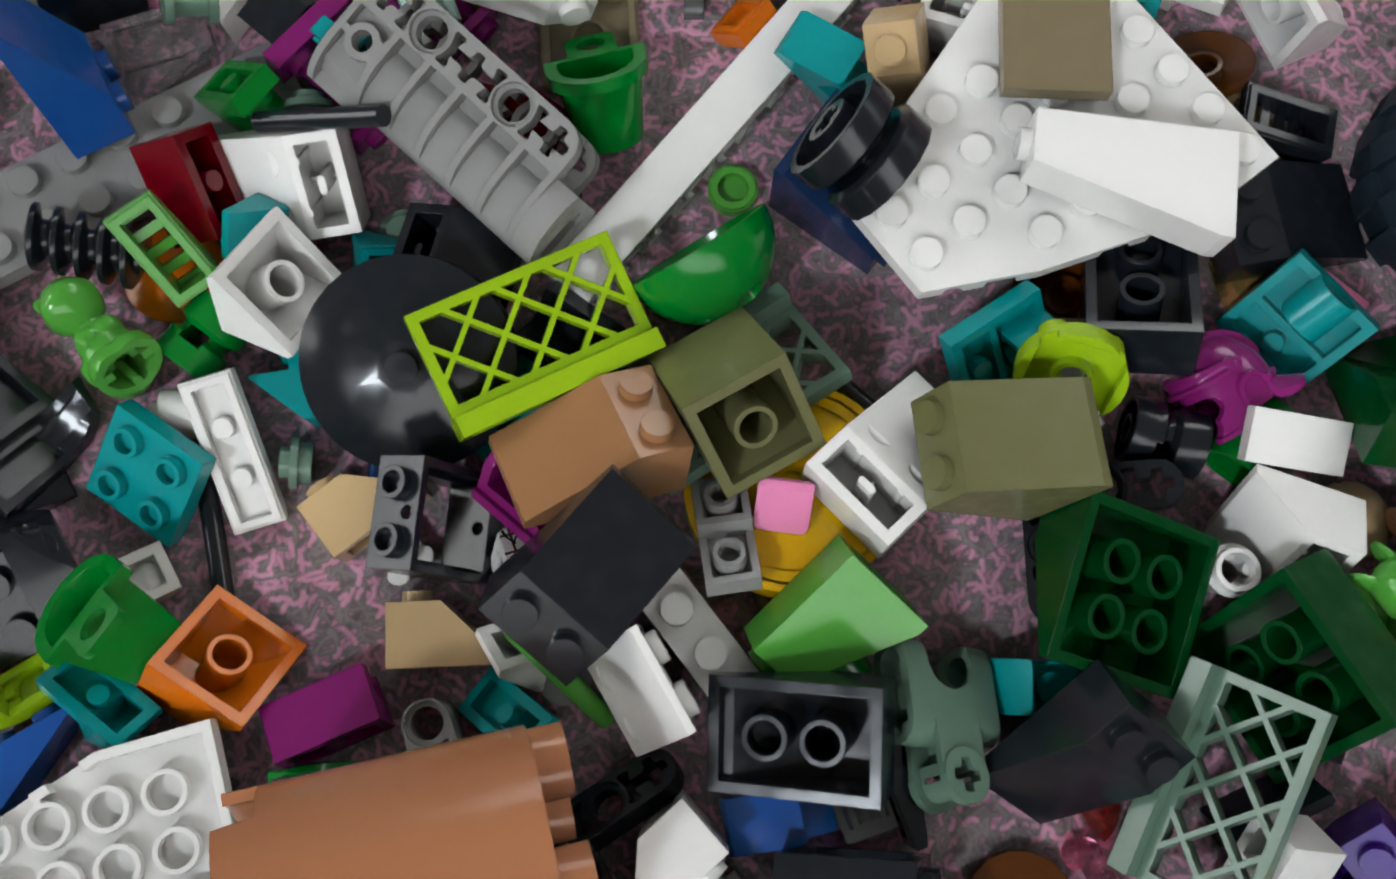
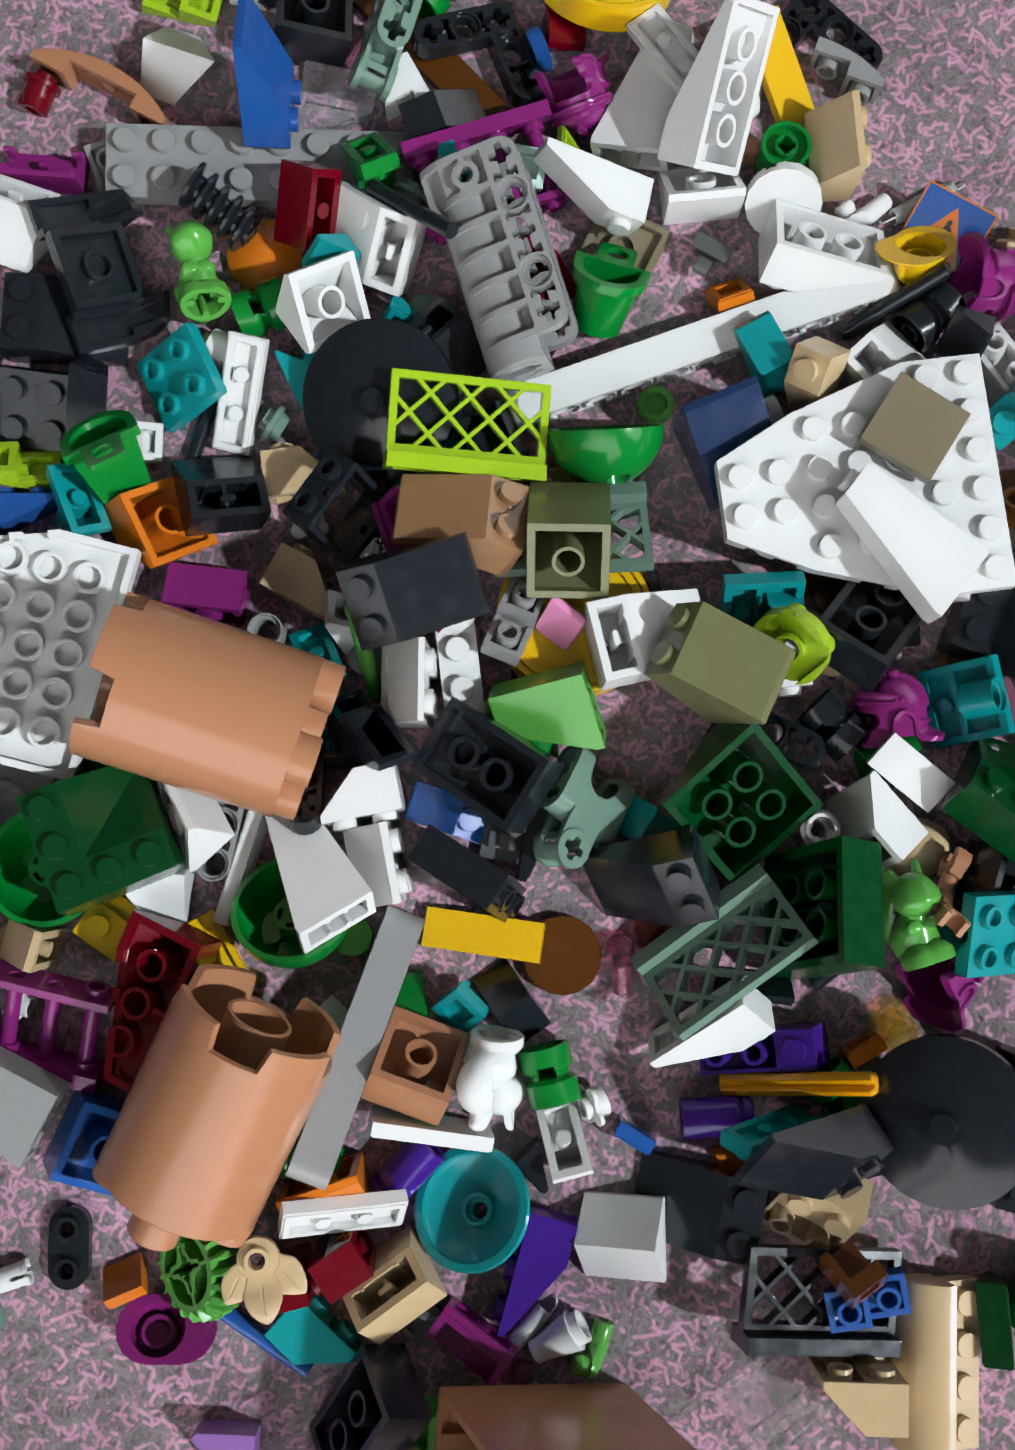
camera: 30 degrees right, 5 degrees up
(180, 289) = (272, 269): bright green slope -> none
(276, 587) = (220, 495): none -> black slope
(633, 779) = (368, 732): none -> black slope
(861, 147) = (741, 423): black wheel -> none

